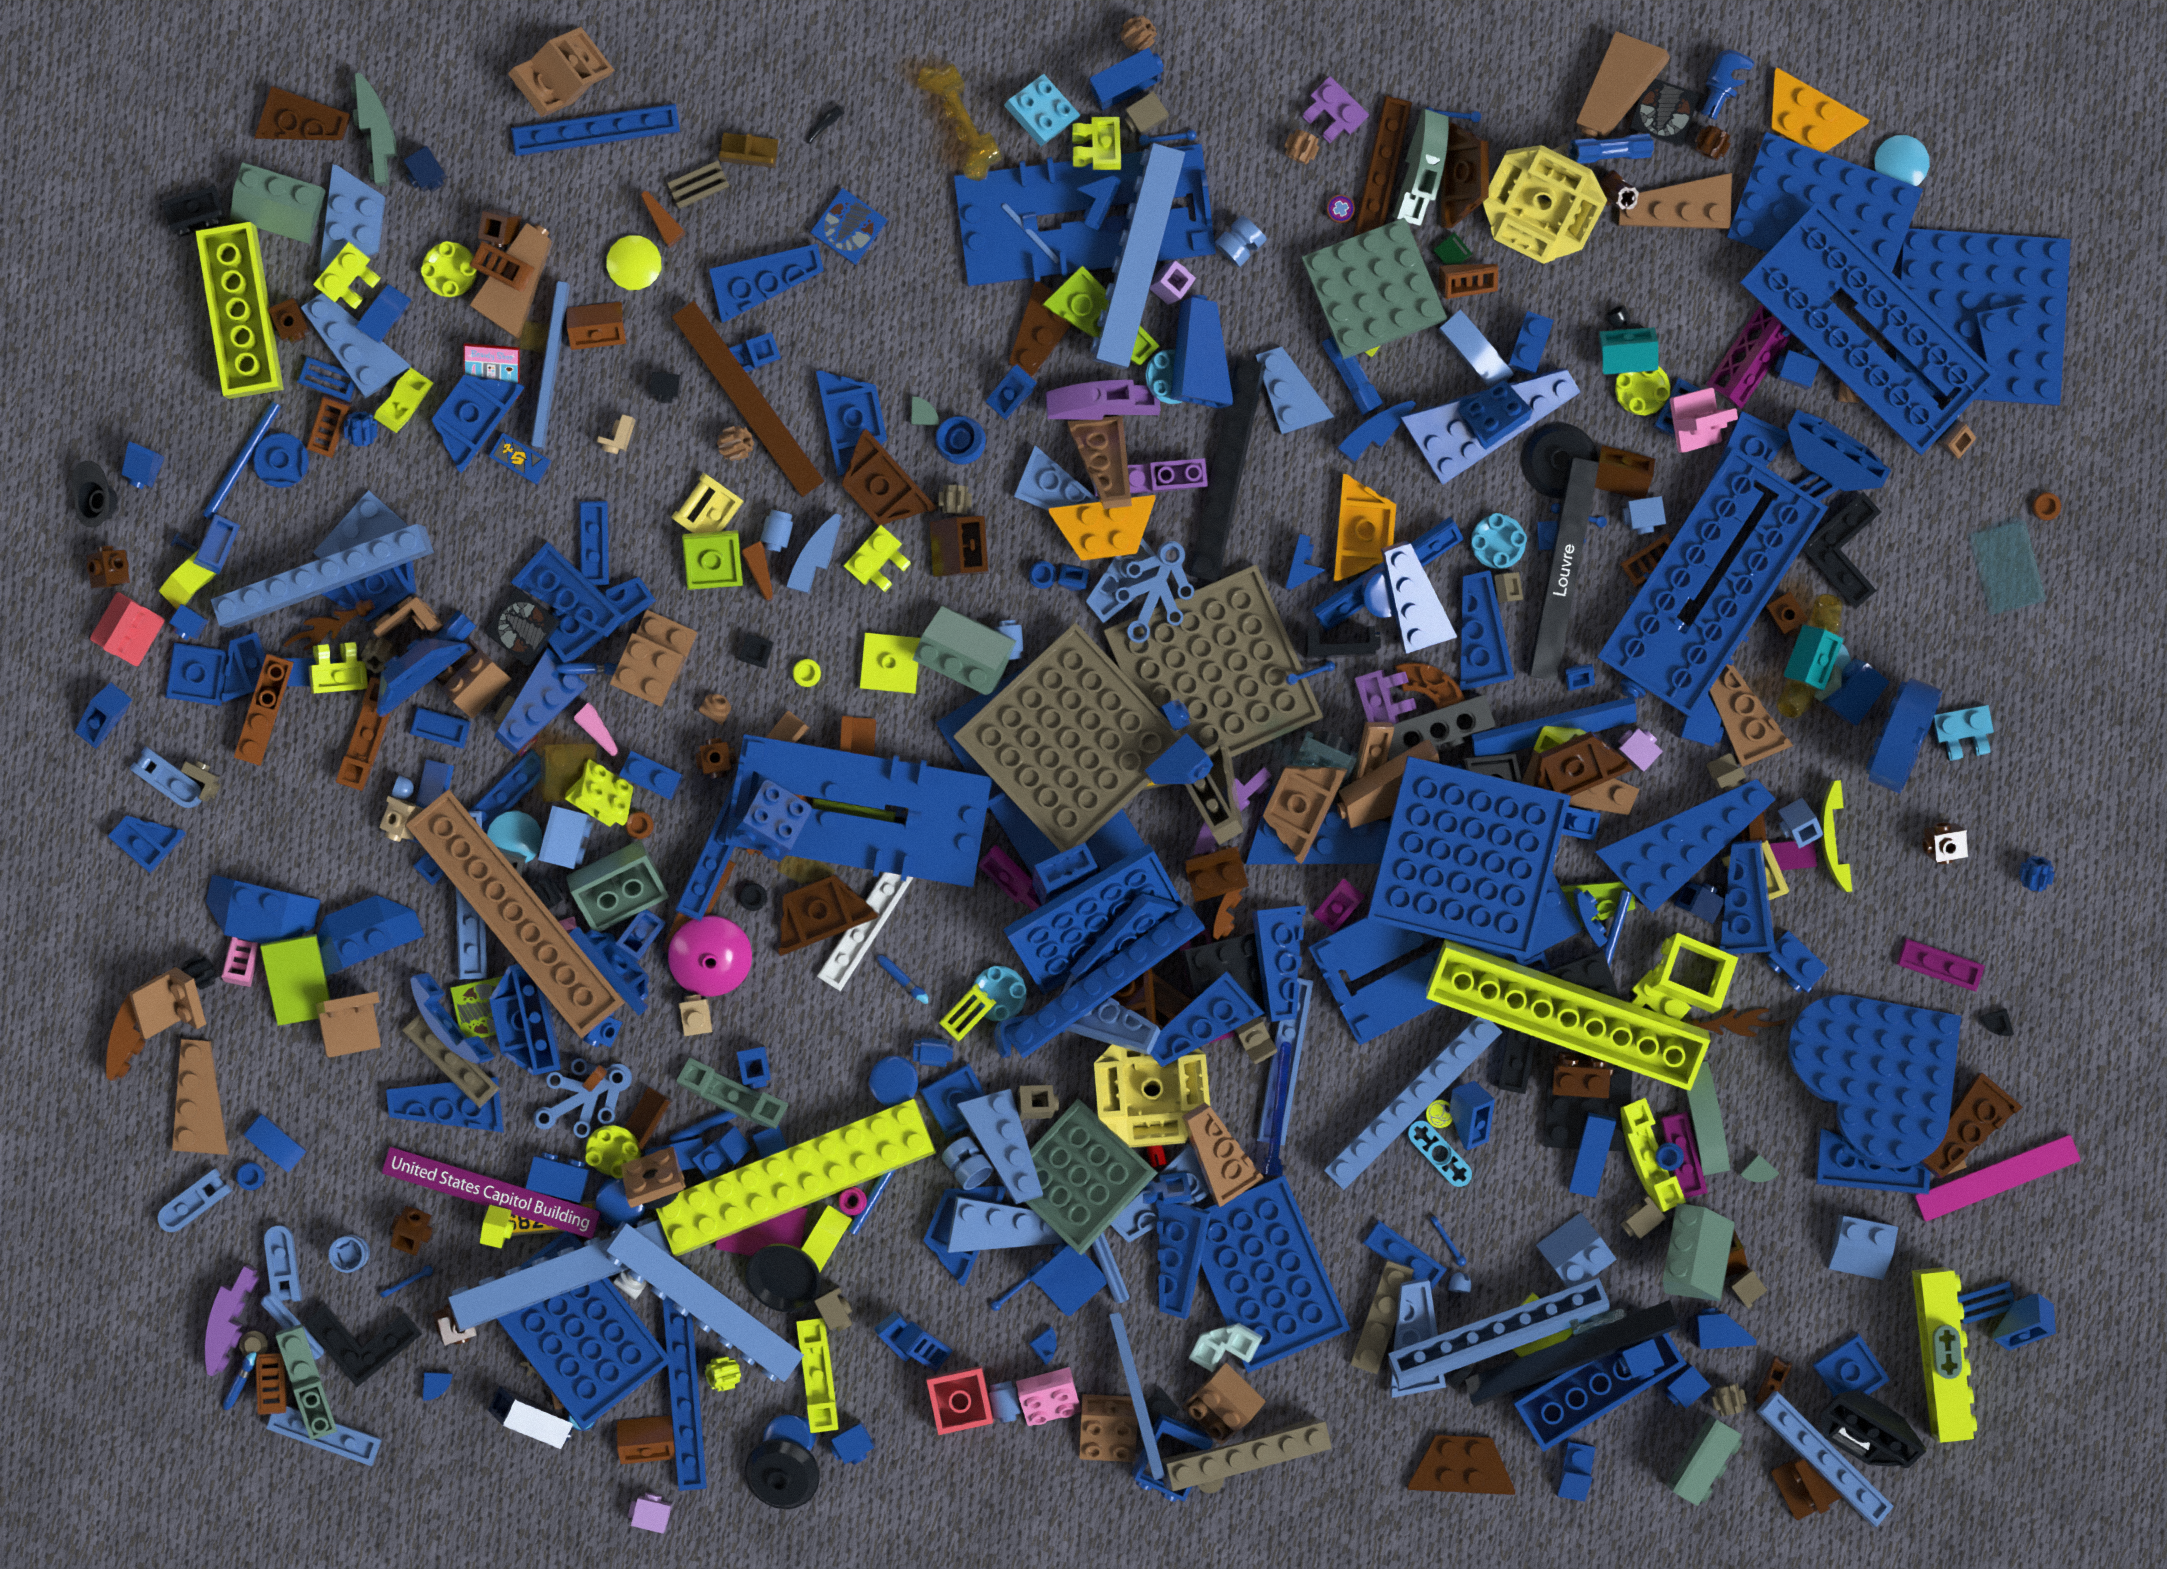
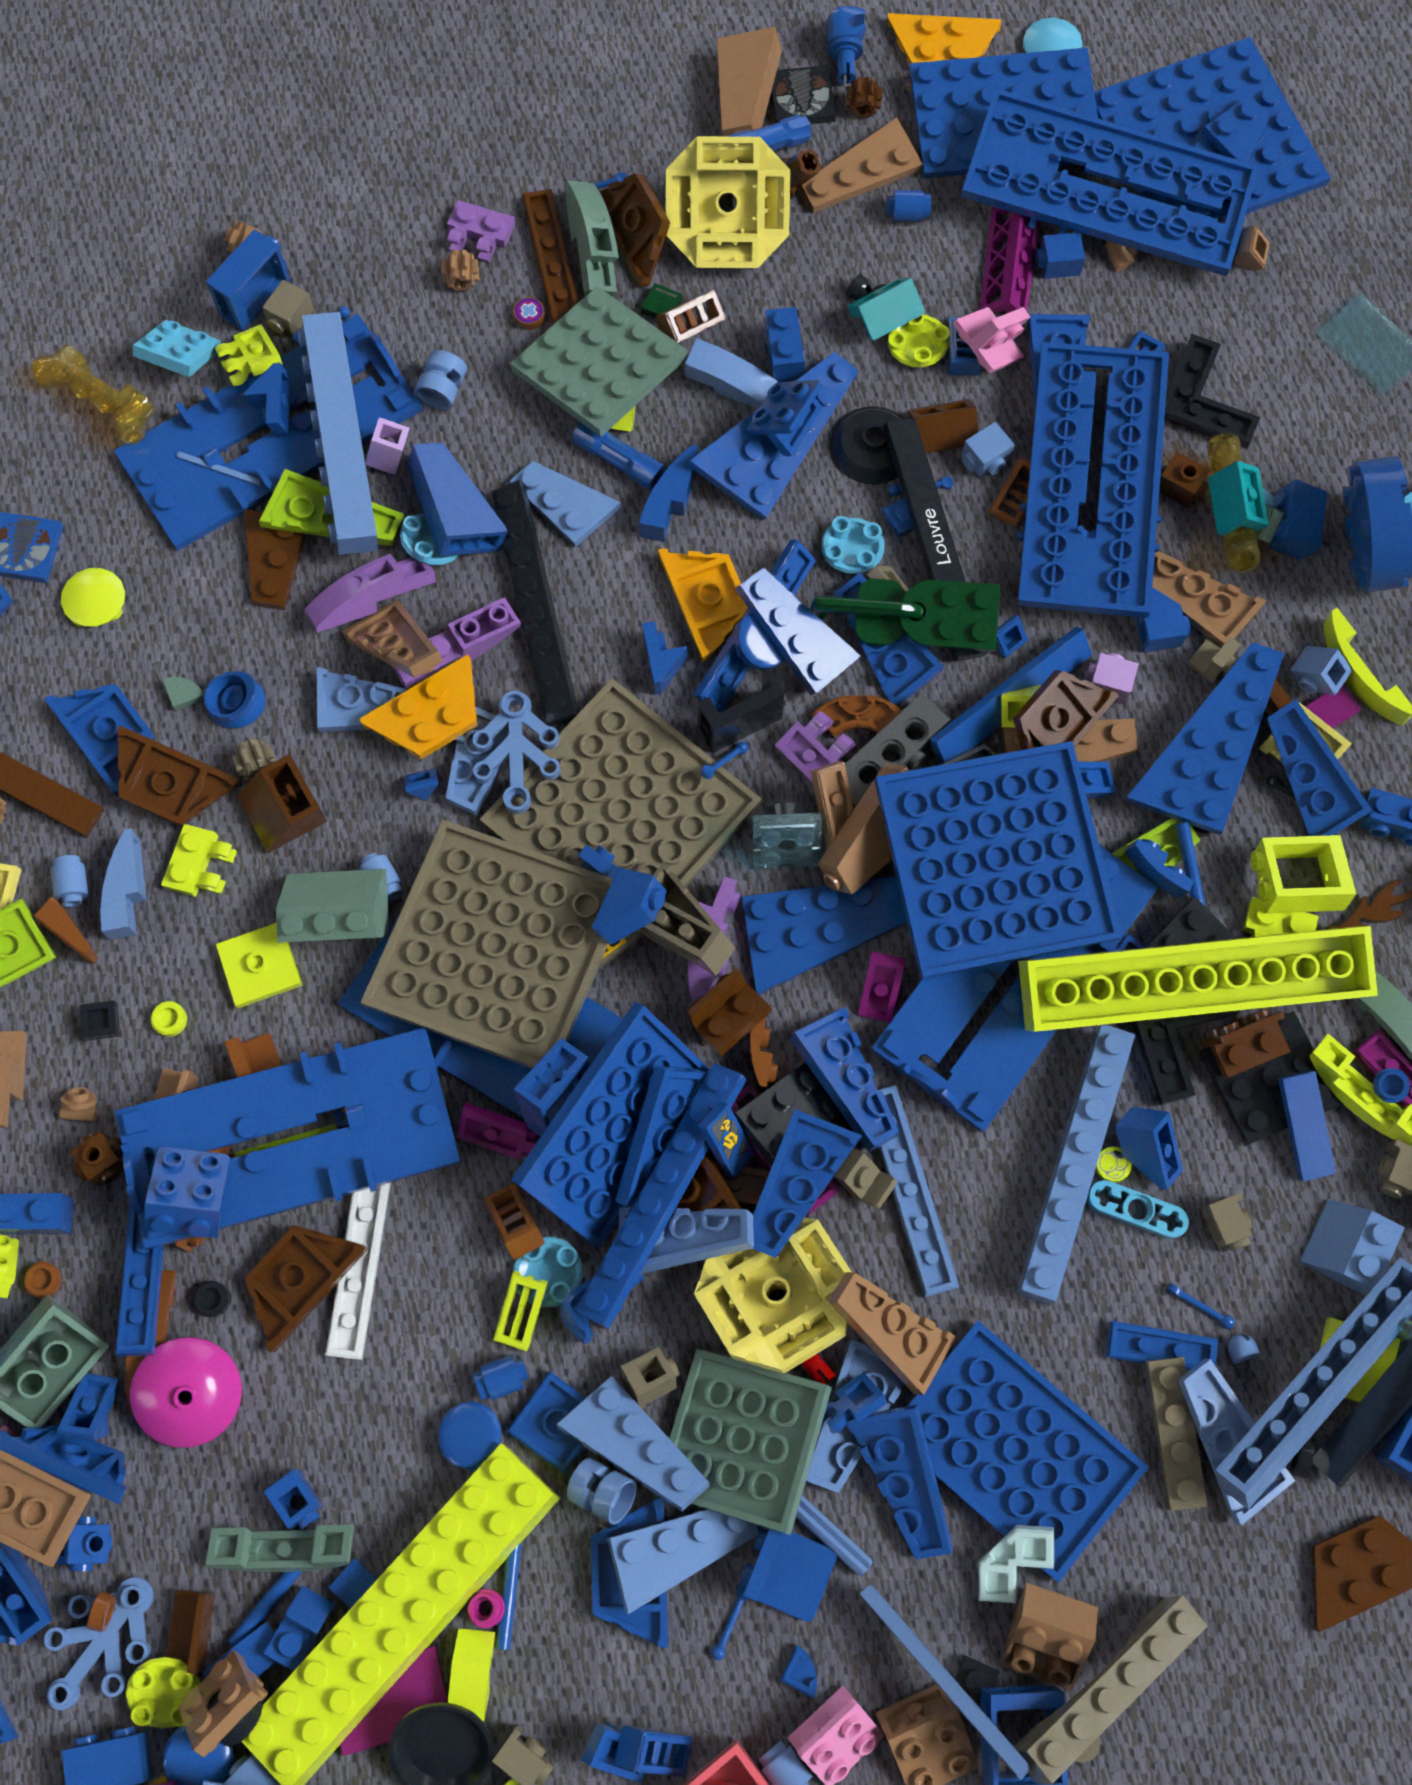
camera: 25 degrees left, 15 degrees down
(695, 1015) = (198, 1472): tan bracket -> none
(804, 869) = (256, 1237): clear yellow tile -> none
(886, 298) = (93, 597): none -> neon yellow dish
(916, 992) = (451, 1317): blue piece -> none
(991, 962) = (527, 1235): none -> dark orange slope
(1011, 392) = (267, 624): blue slope -> none
(1042, 574) = (386, 795): blue plate -> none
(1169, 965) = (726, 1139): none -> tile
(1272, 1163) = (957, 1314): clear blue piece -> none
(1302, 804) = (786, 893): medium nougat wing -> none
(1498, 1195) = (1228, 1223): none -> dark tan brick
(1540, 647) = (954, 618): none -> dark green plate
(1632, 689) = (1067, 620): blue plate -> none
(1697, 262) = (908, 205): none -> blue brick
(1700, 901) = (1264, 799): dark blue brick -> none
(1835, 454) = (1146, 310): blue wedge -> none
(2046, 506) = (1374, 273): dark orange tile -> none

